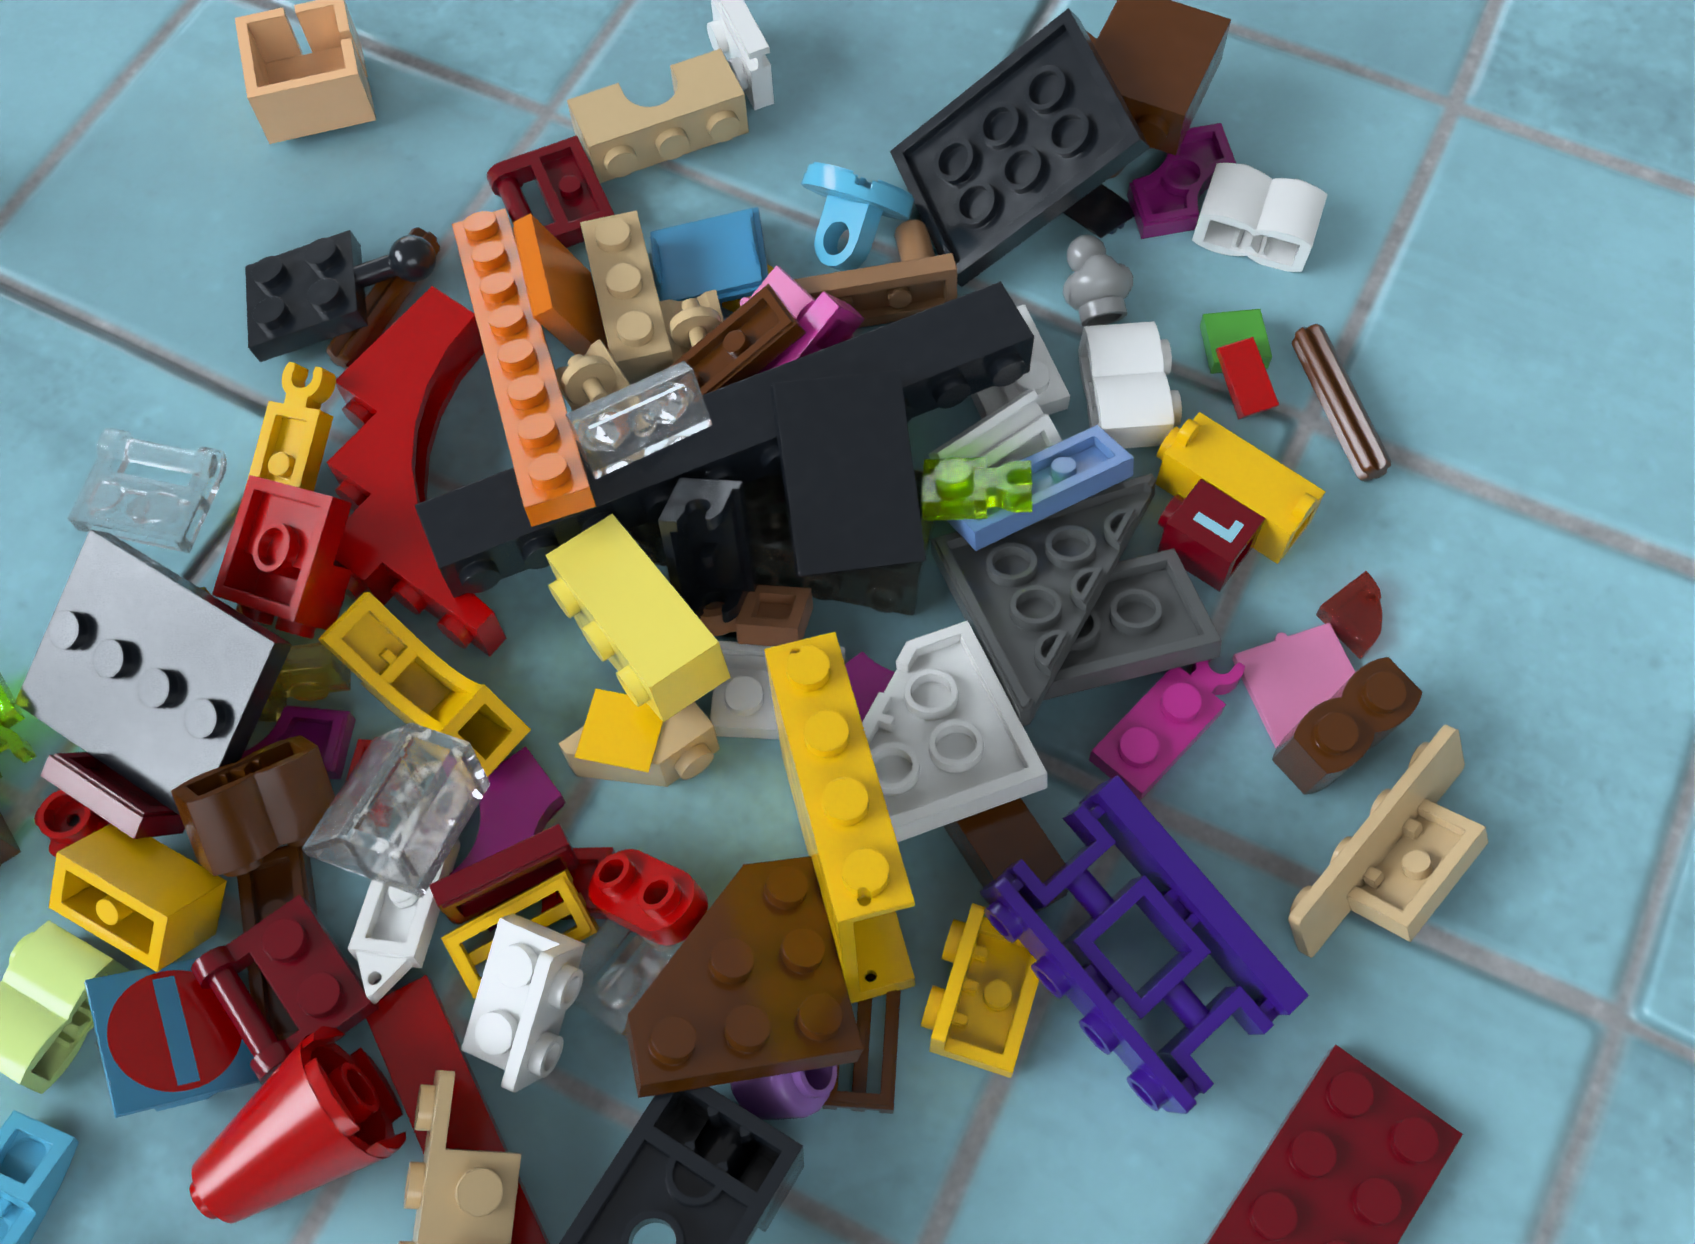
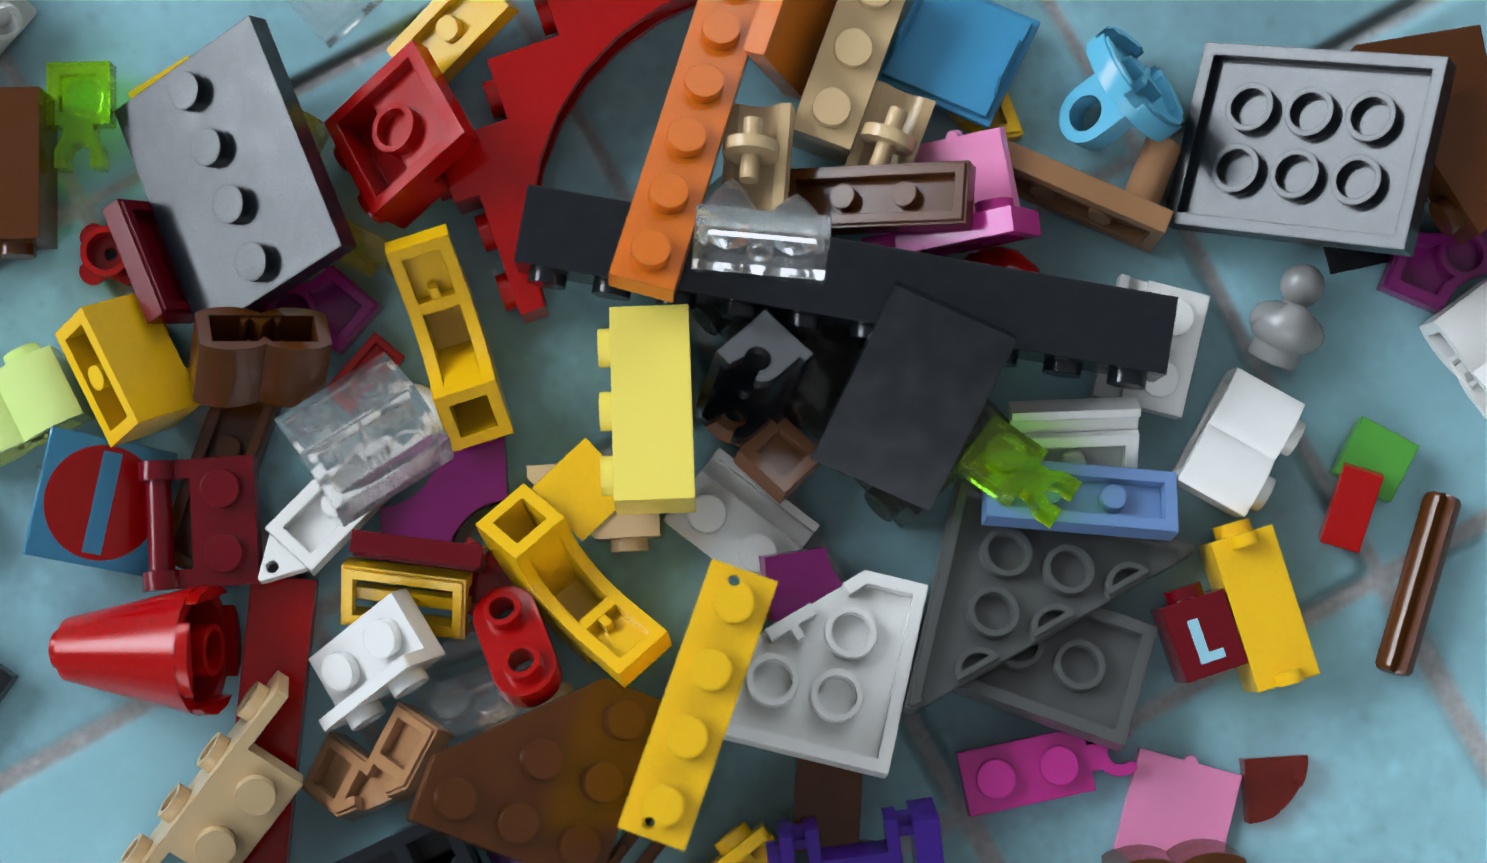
camera: 25 degrees right, 20 degrees up
(574, 1125) = (360, 783): none -> medium nougat tile
(616, 809) = (569, 590): none -> yellow arch

